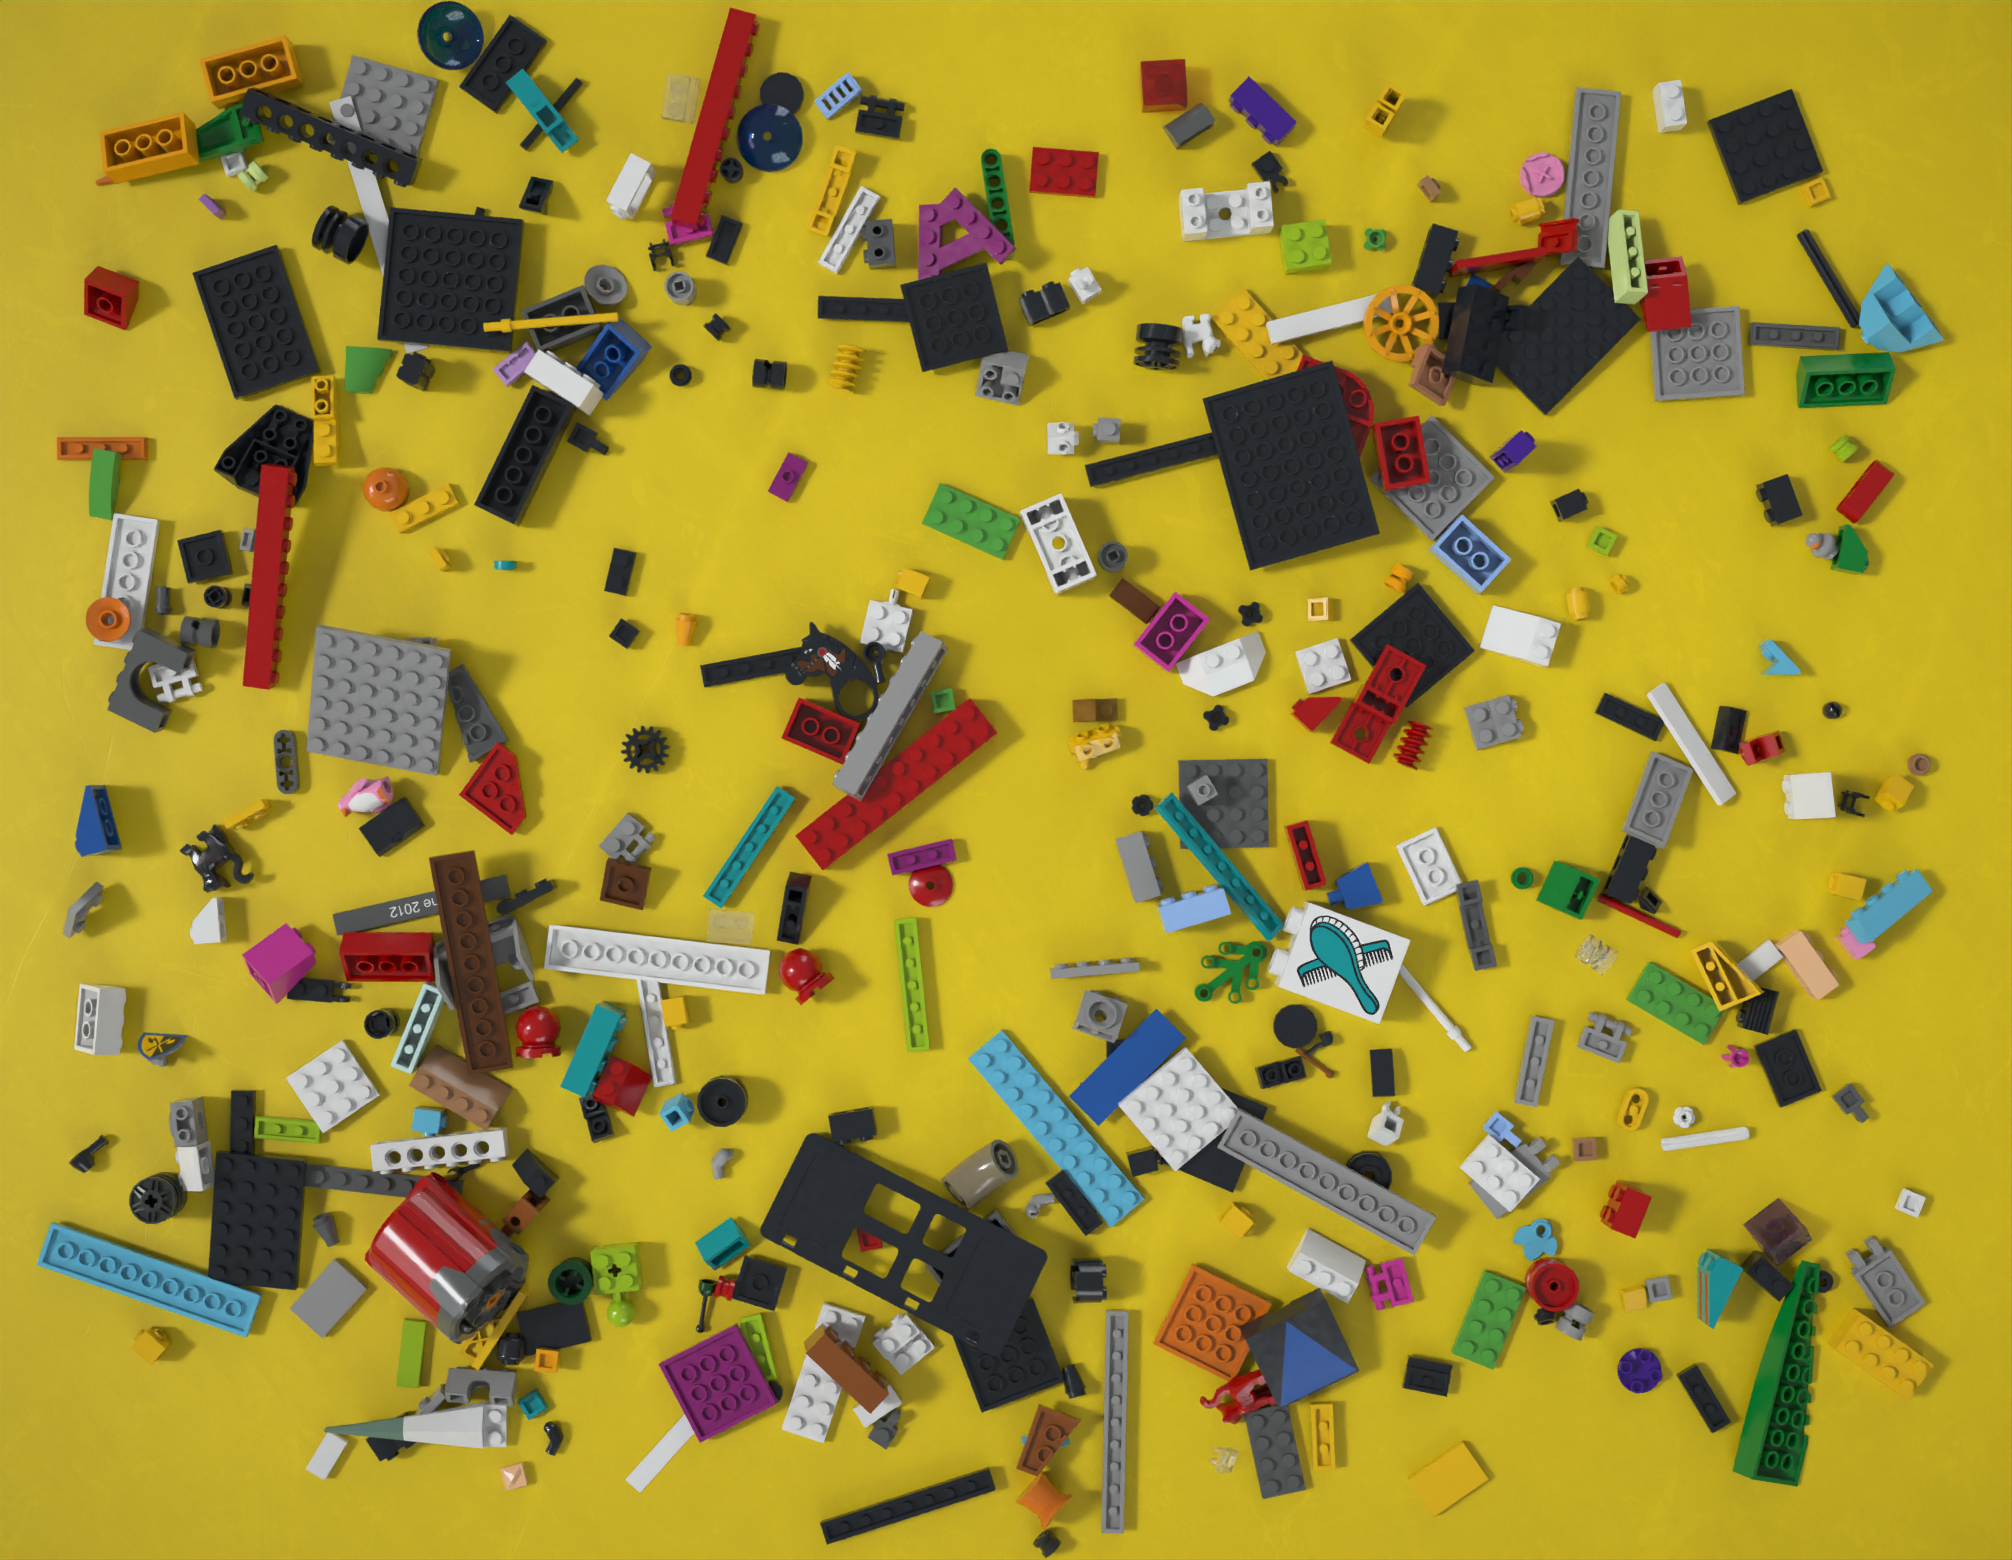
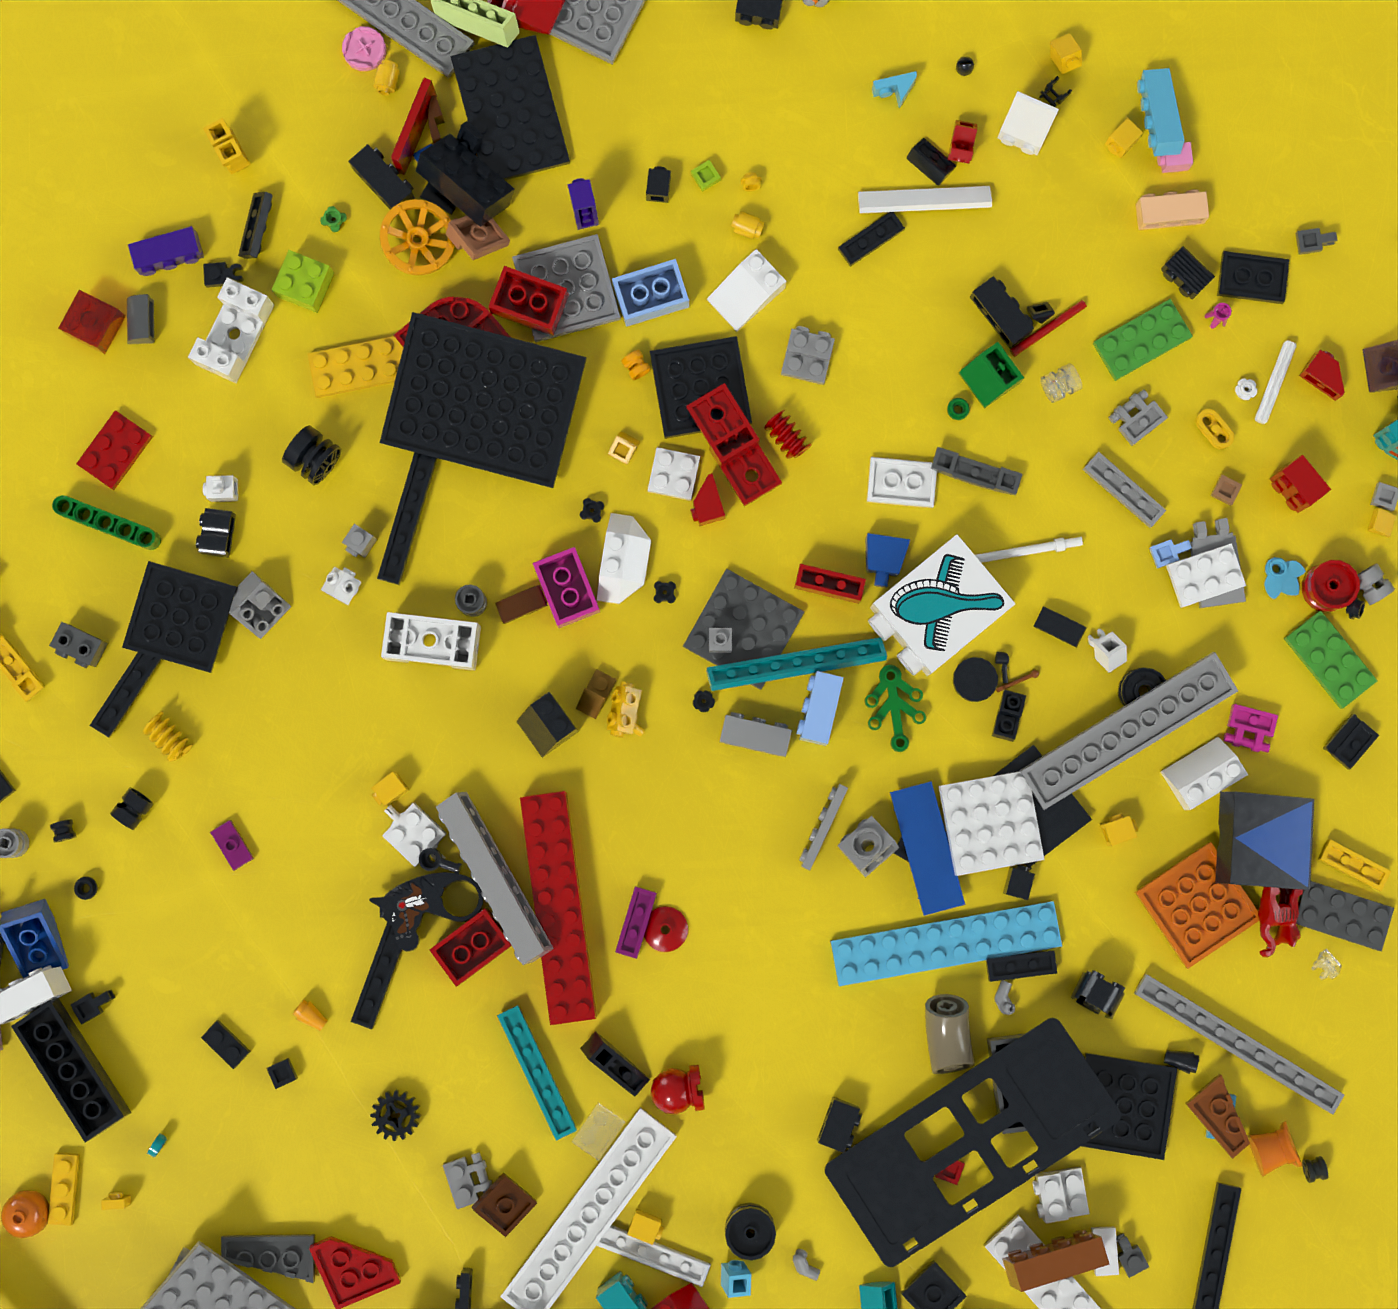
camera: 60 degrees left, 5 degrees down
(849, 230) = (50, 665): white tile -> none
(912, 984) = (744, 998): lime plate -> none
(942, 700) = (509, 823): bright green plate -> none
(971, 521) = (367, 706): bright green plate -> none
(981, 235) = (123, 551): magenta plate -> none
(1044, 684) = (546, 724): none -> slope
(1199, 332) = (322, 413): white animal -> none
(1322, 319) = (374, 302): white tile -> none
(1330, 175) = (255, 225): none -> plate
(1430, 188) = (317, 147): medium nougat plate -> none
(1559, 236) = (424, 62): red plate -> none
(1657, 800) = (957, 254): light grey plate -> none
(1723, 976) = (1143, 285): yellow wedge -> none
(1736, 1177) = (1324, 374): none -> red slope
(1760, 959) = (1146, 250): white tile -> none
(1918, 764) = (1053, 20): medium nougat plate -> none

